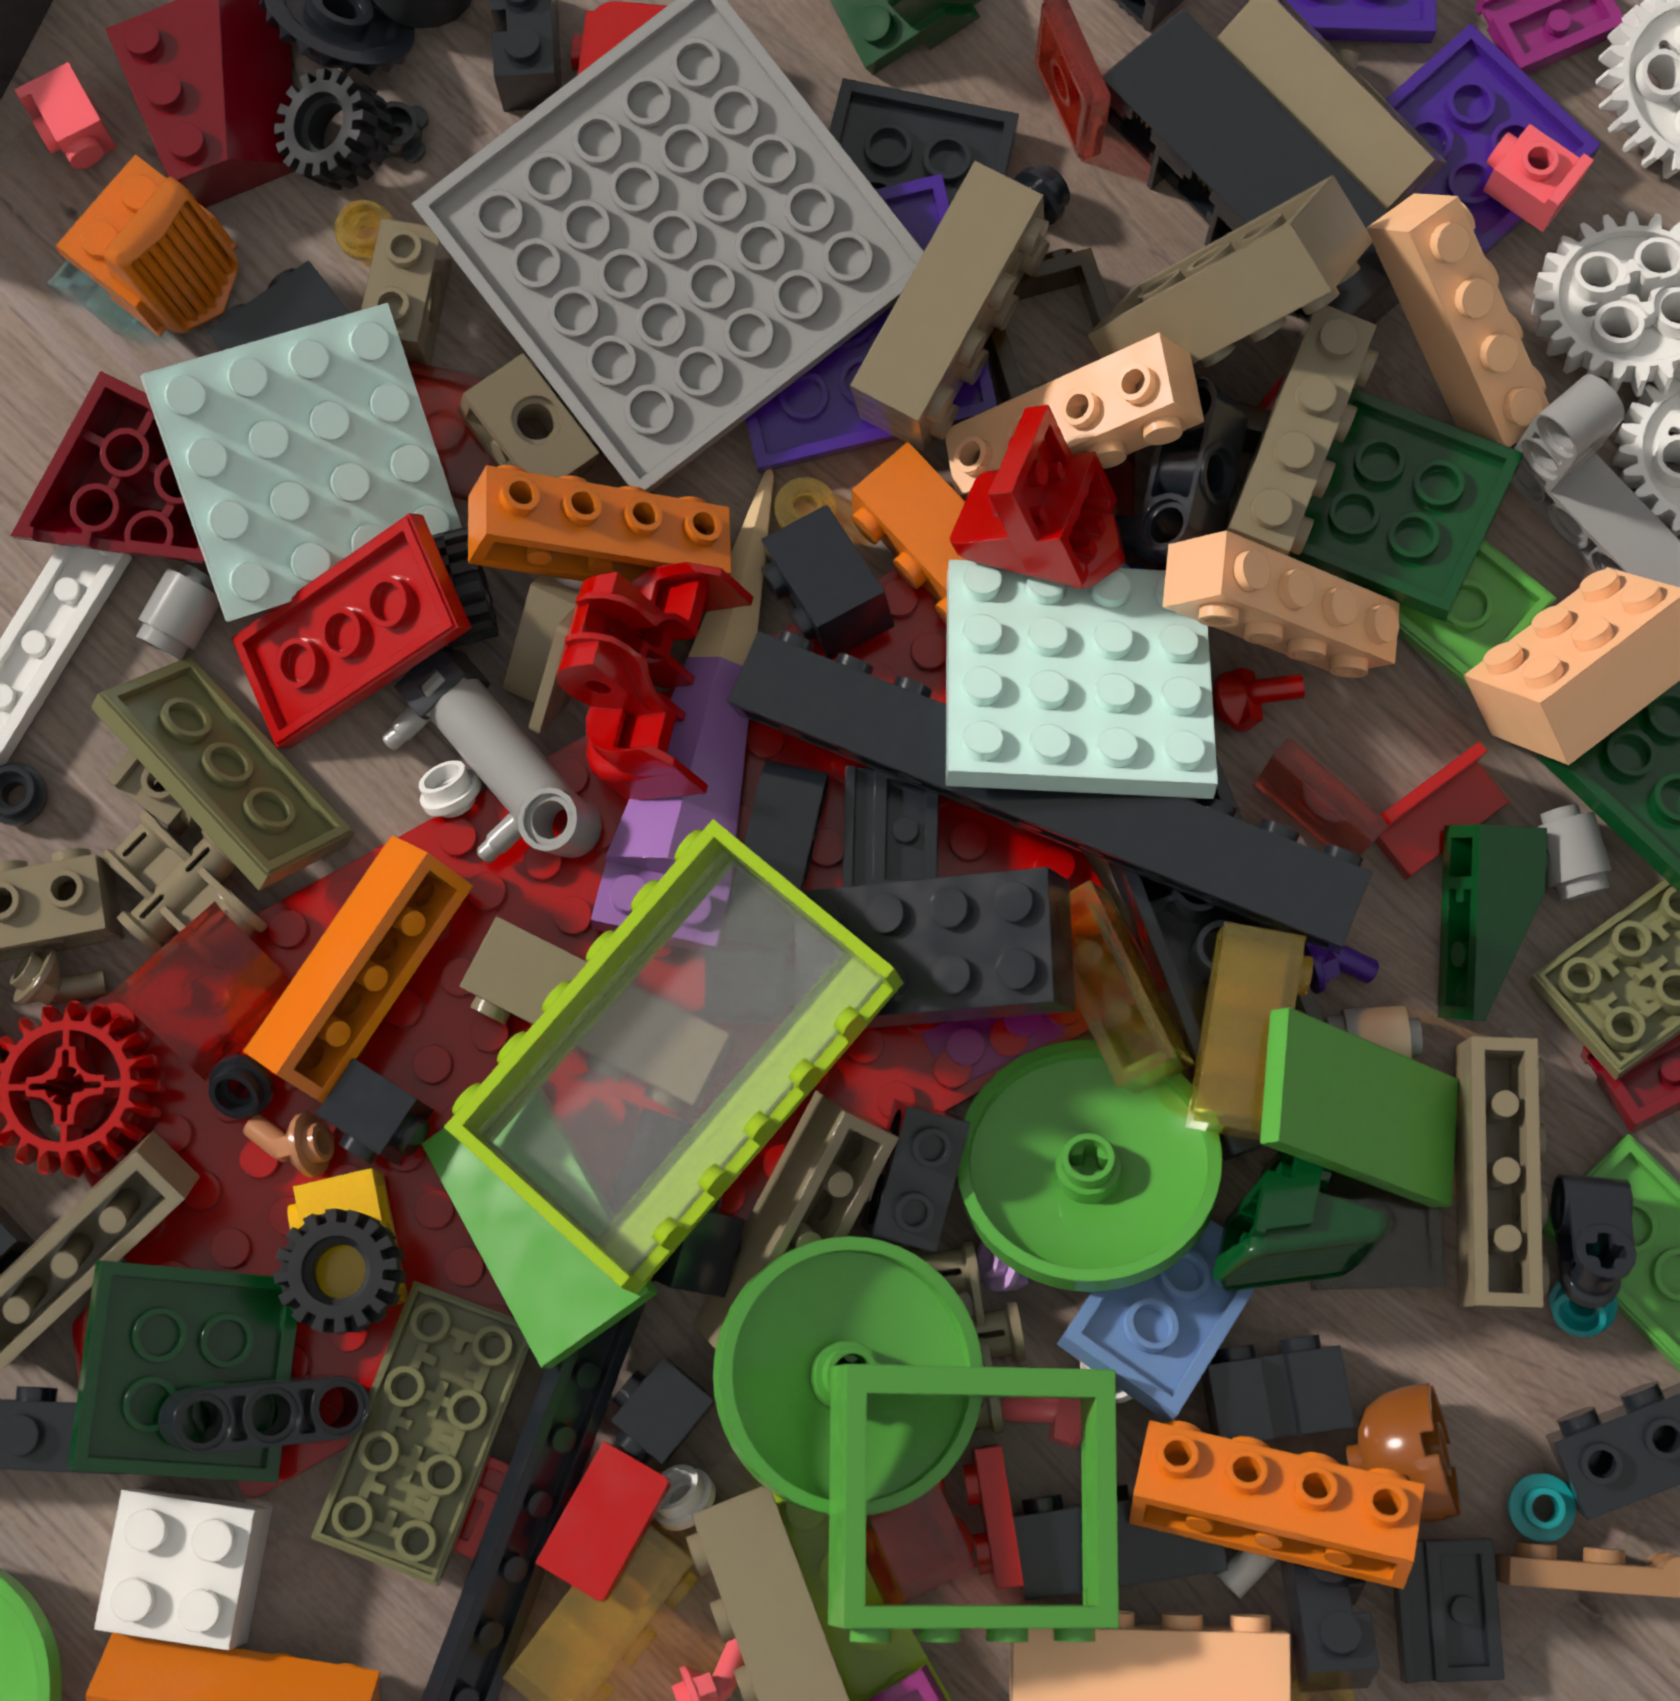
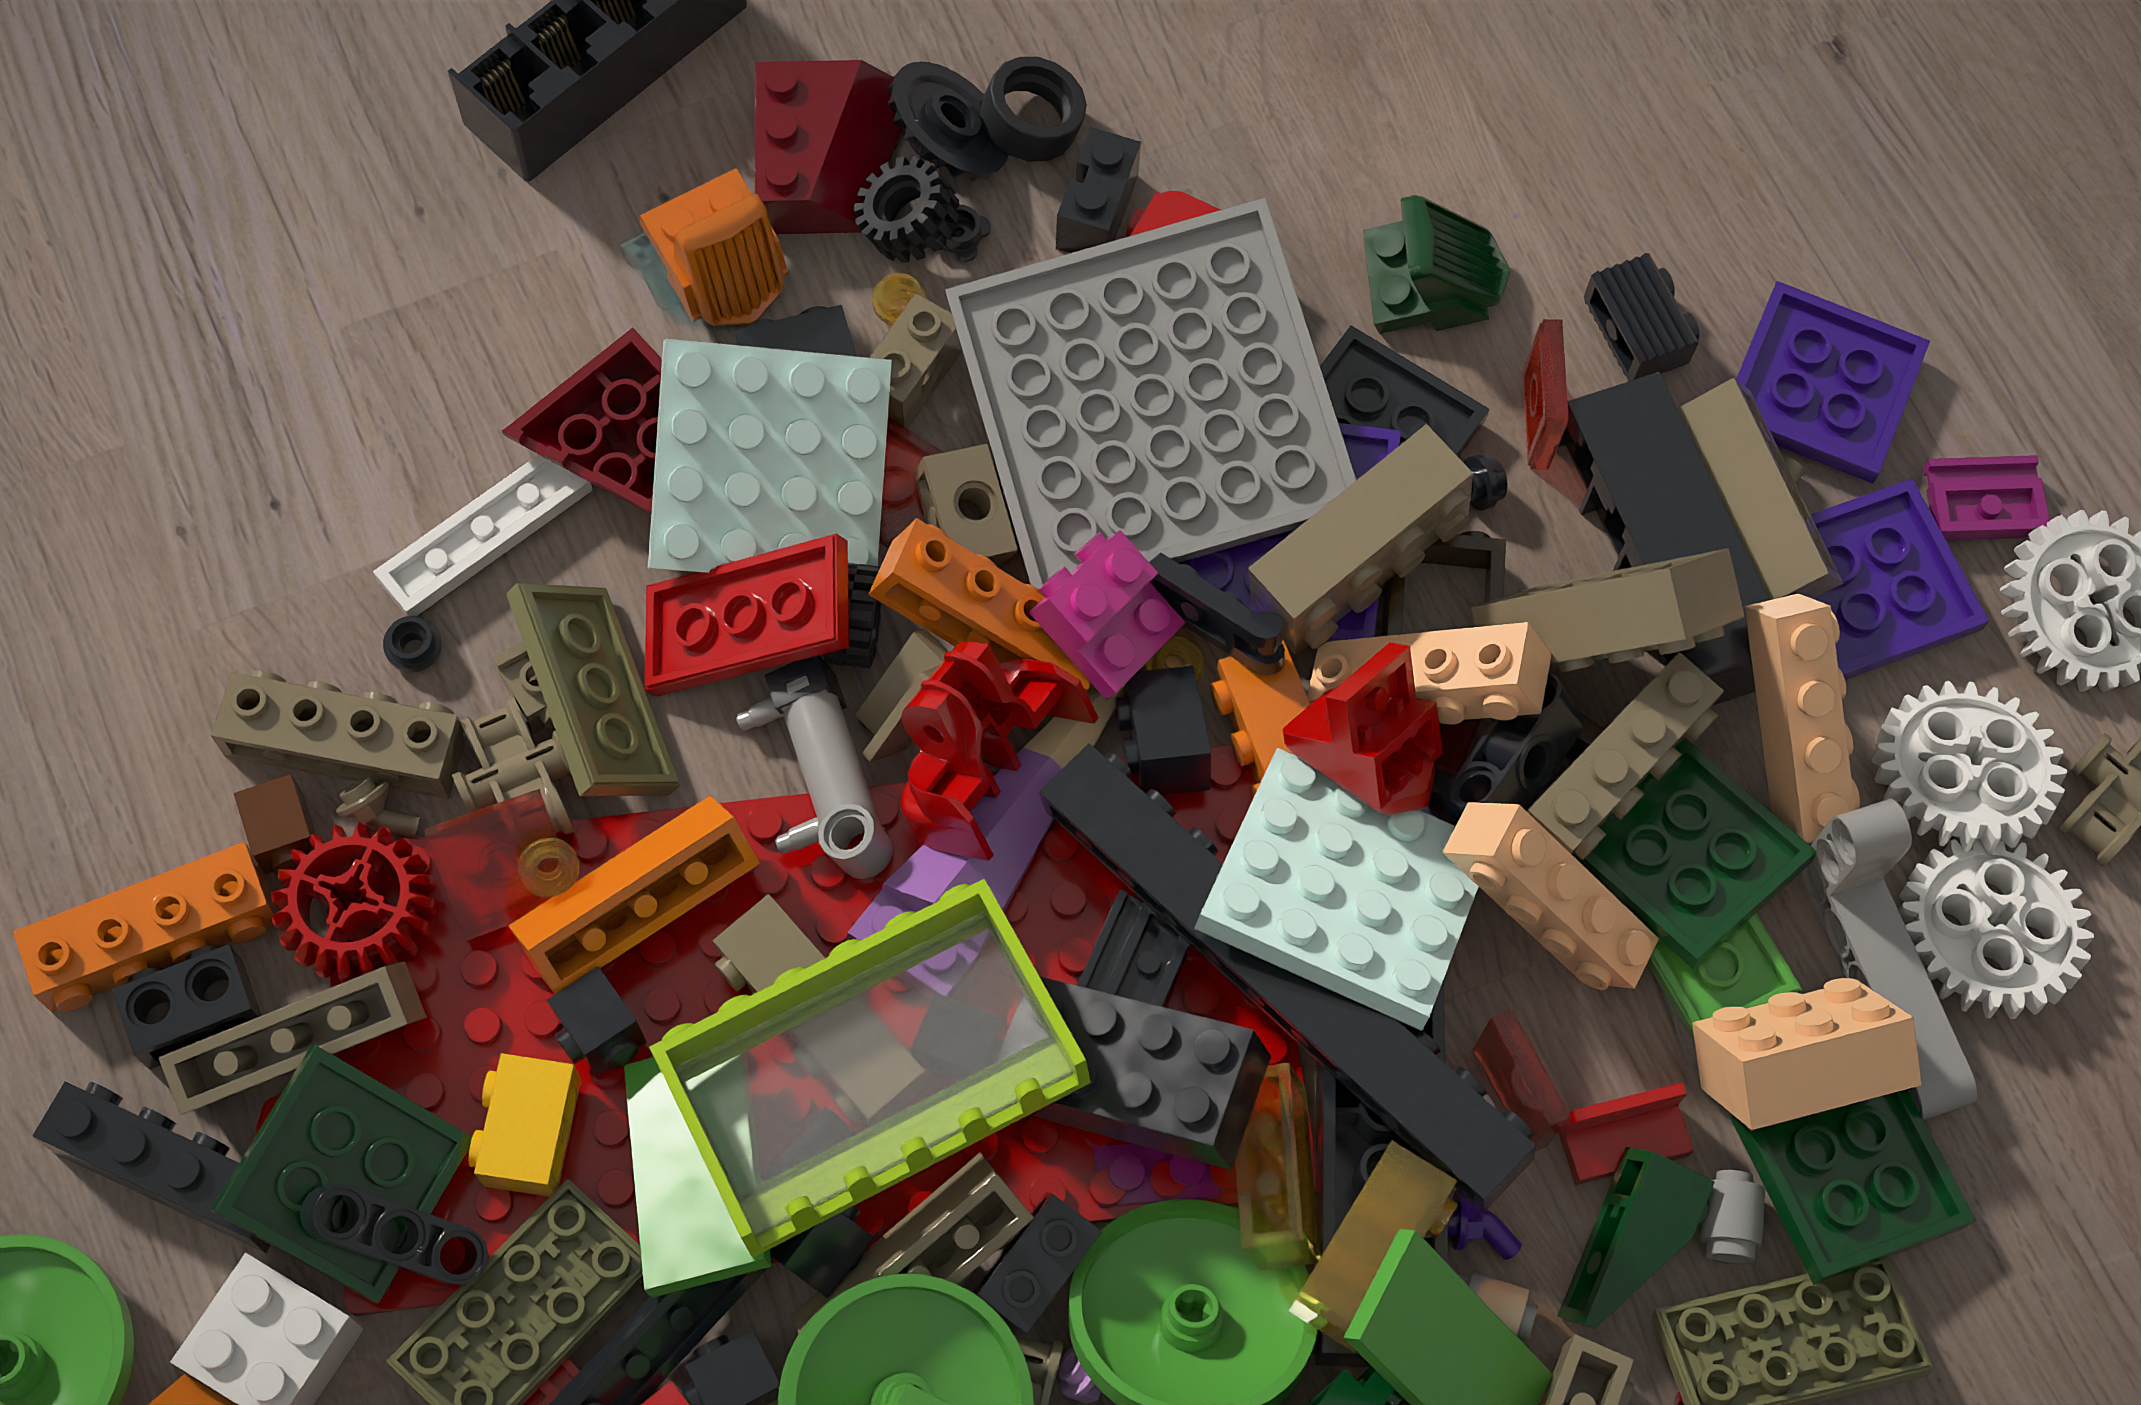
camera: 15 degrees right, 10 degrees down
(66, 117) = (693, 120): coral brick -> none
(178, 611) = (612, 547): light grey brick -> none
(240, 1086) = (481, 960): black plate -> none
(268, 991) = (554, 882): none -> clear yellow plate
(300, 1261) = (483, 1112): black tyre -> none
(305, 1145) = (525, 1026): nougat plate -> none
(449, 789) = (774, 780): white plate -> none
(719, 484) = (1107, 612): none -> dark pink plate
(787, 818) = (1052, 913): black beam -> none
(832, 444) = (1221, 617): none -> black plate
(1240, 696) = (1489, 964): red plate -> none
(1534, 175) = (1917, 624): coral brick -> none

